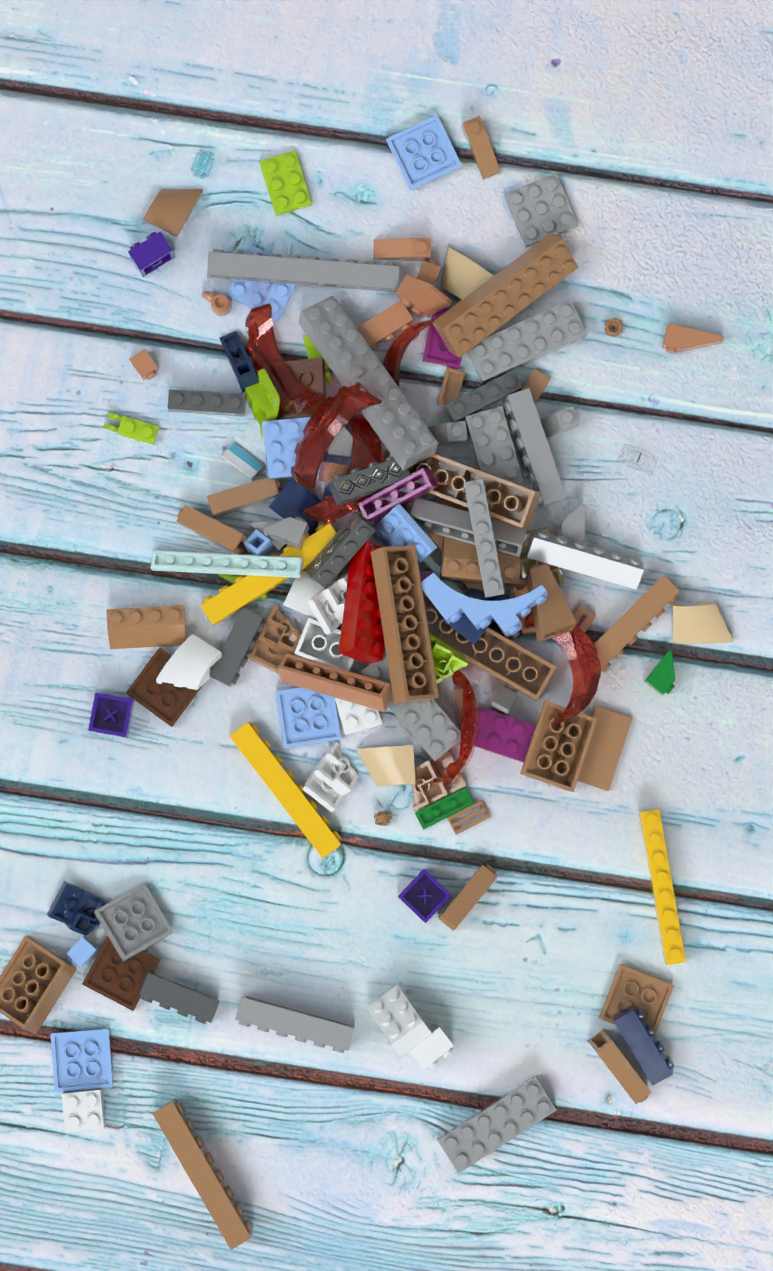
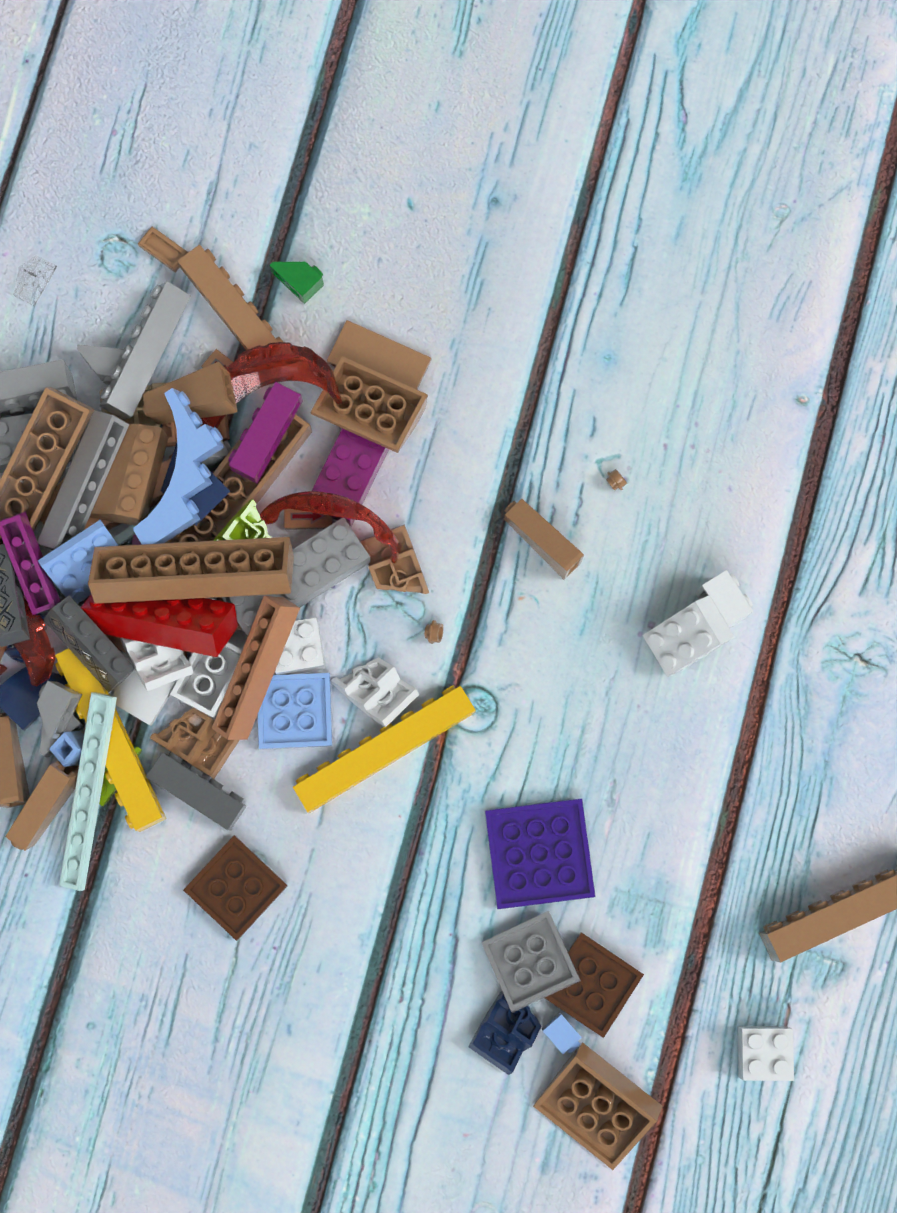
camera: 80 degrees left, 5 degrees down
(81, 1060) = (700, 1048): light blue plate -> none
(111, 715) = (262, 962): dark purple brick -> none
(146, 627) = (155, 904): medium nougat slope -> none
(179, 997) = (632, 913): dark grey brick -> none
(190, 664) = (209, 852): white slope -> none
(217, 920) = (539, 854): none -> dark purple plate
(295, 1023) = (679, 767): light grey brick -> none
(389, 764) = (368, 615): tan slope -> none
(424, 895) = (535, 589): dark purple brick -> none
(444, 808) = (429, 556): green tile -> none
(482, 810) = (437, 509): medium nougat tile -> none
(484, 538) = (95, 457): light grey brick -> none
(496, 1124) = (824, 534): light grey brick -> none
(504, 699) = (304, 467): light grey slope -> none
(523, 952) = (616, 480): none -> medium nougat plate
(525, 667) = (265, 432): none -> magenta brick
(619, 1066) = (765, 380): medium nougat slope -> none
(640, 989) = (689, 353): medium nougat plate -> none
(643, 1044) = (742, 347): dark blue brick -> none
(662, 887) = (554, 306): yellow brick -> none
(676, 560) = (162, 248): none -> medium nougat tile
(699, 624) = (243, 228): tan slope -> none

